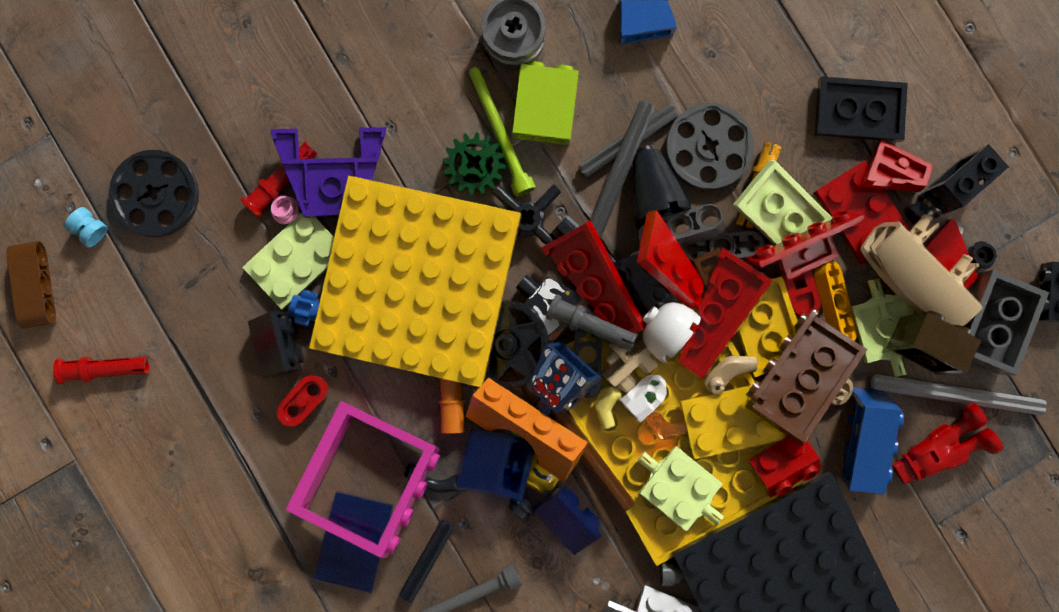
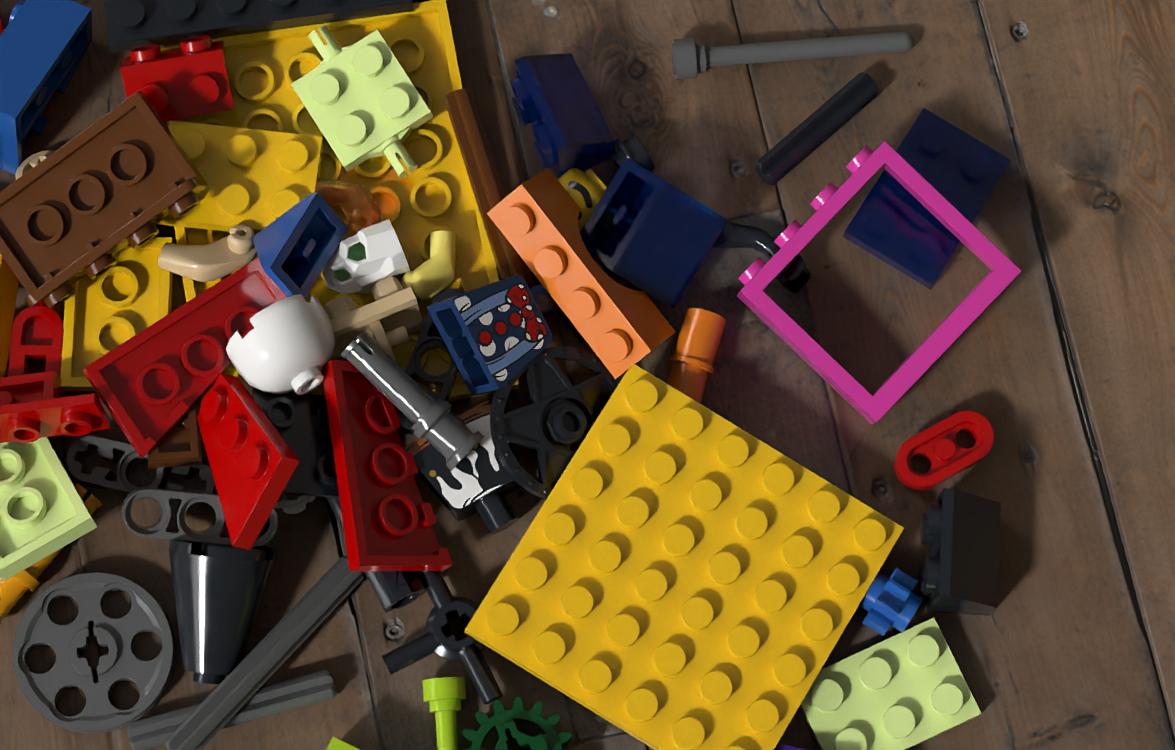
camera: 160 degrees left, 10 degrees down
(683, 389) = (299, 244): none -> blue slope

